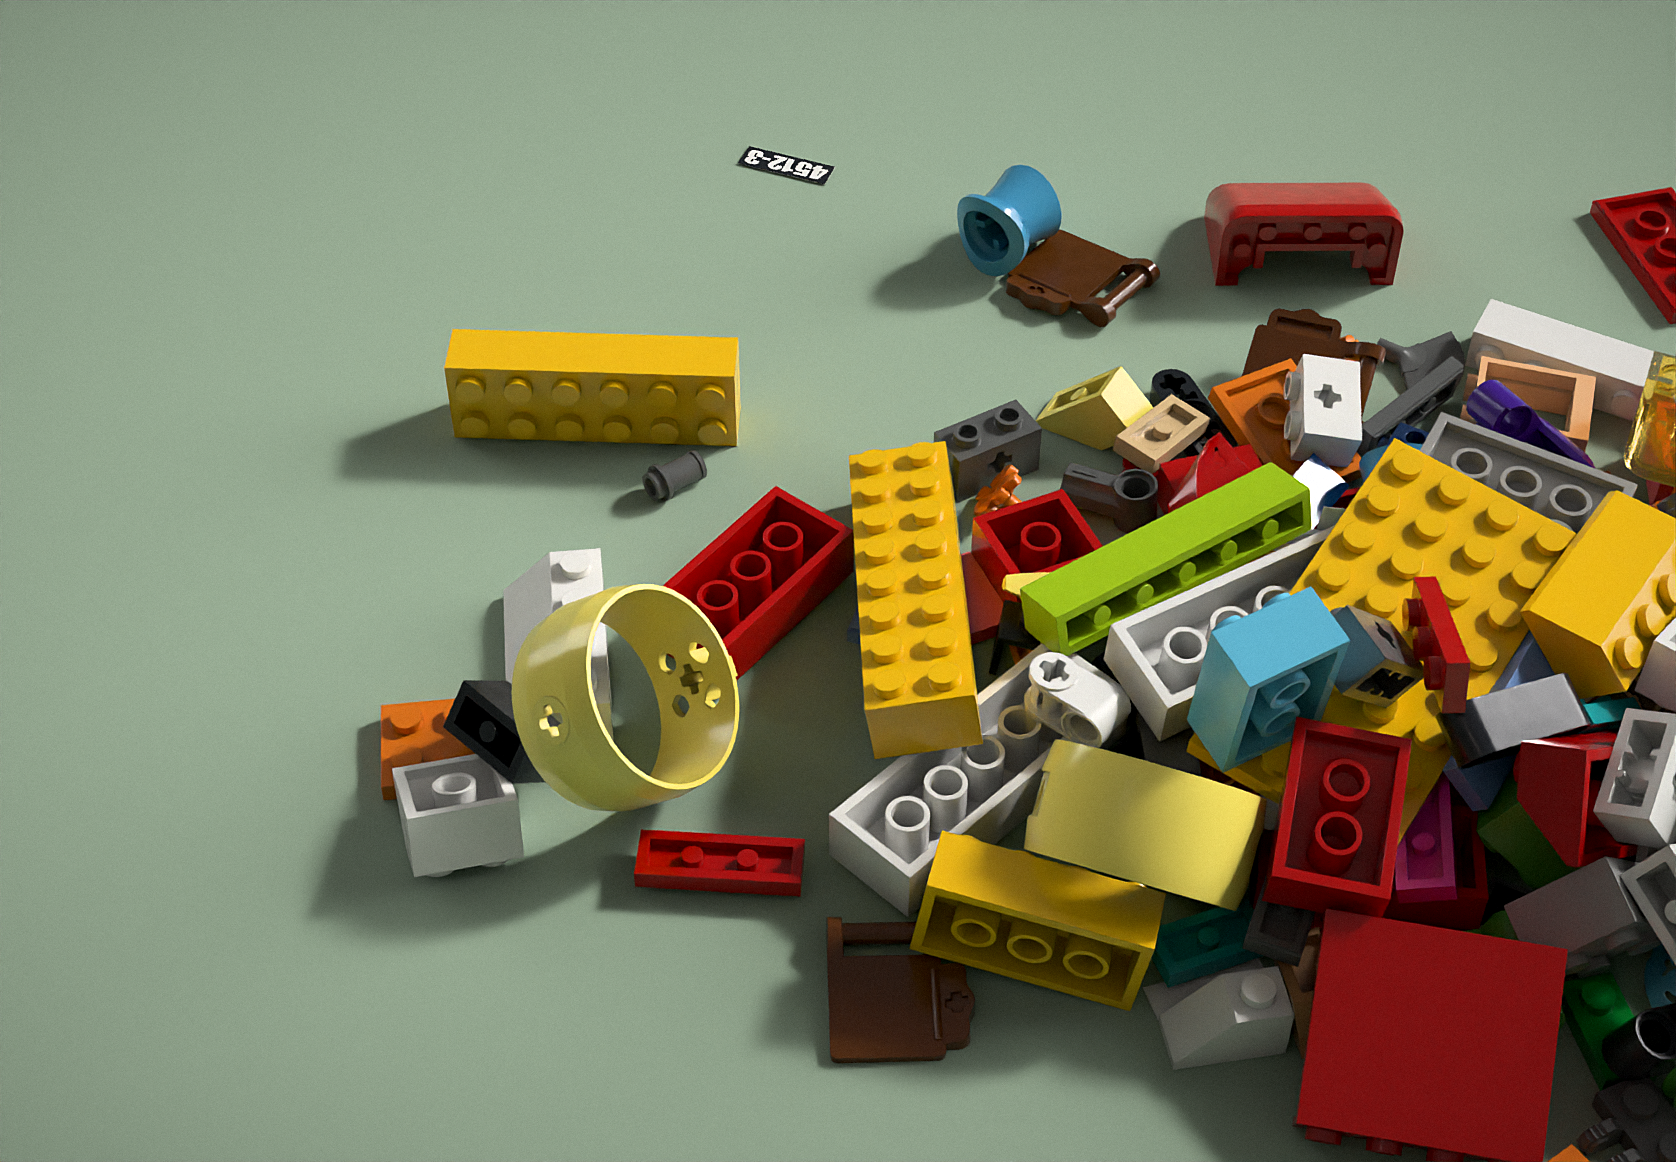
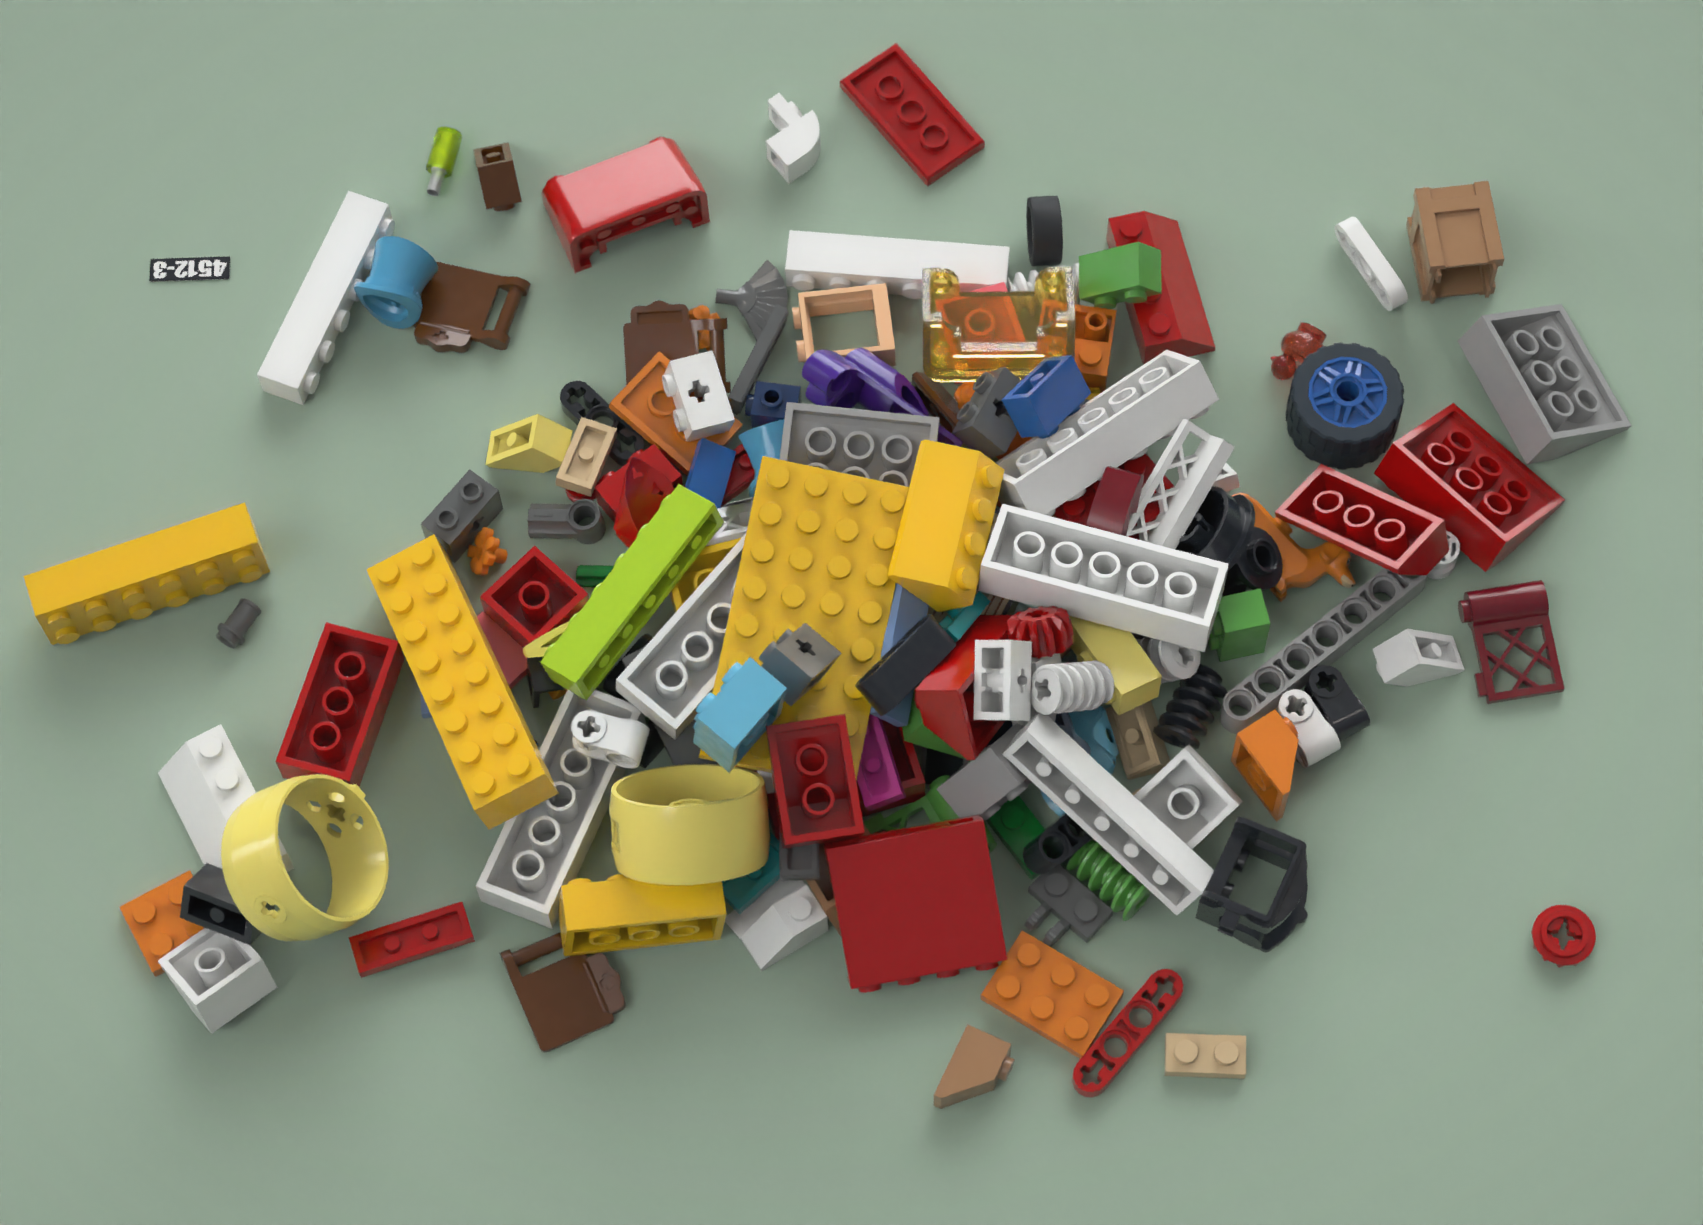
camera: 20 degrees left, 20 degrees up
(909, 225) = (325, 299): none -> white brick
(1108, 143) = (442, 157): none -> clear neon green piece
(1162, 173) = (497, 176): none -> reddish brown slope
(1437, 644) = (839, 637): red plate -> none
(1520, 232) = (798, 142): none -> white brick

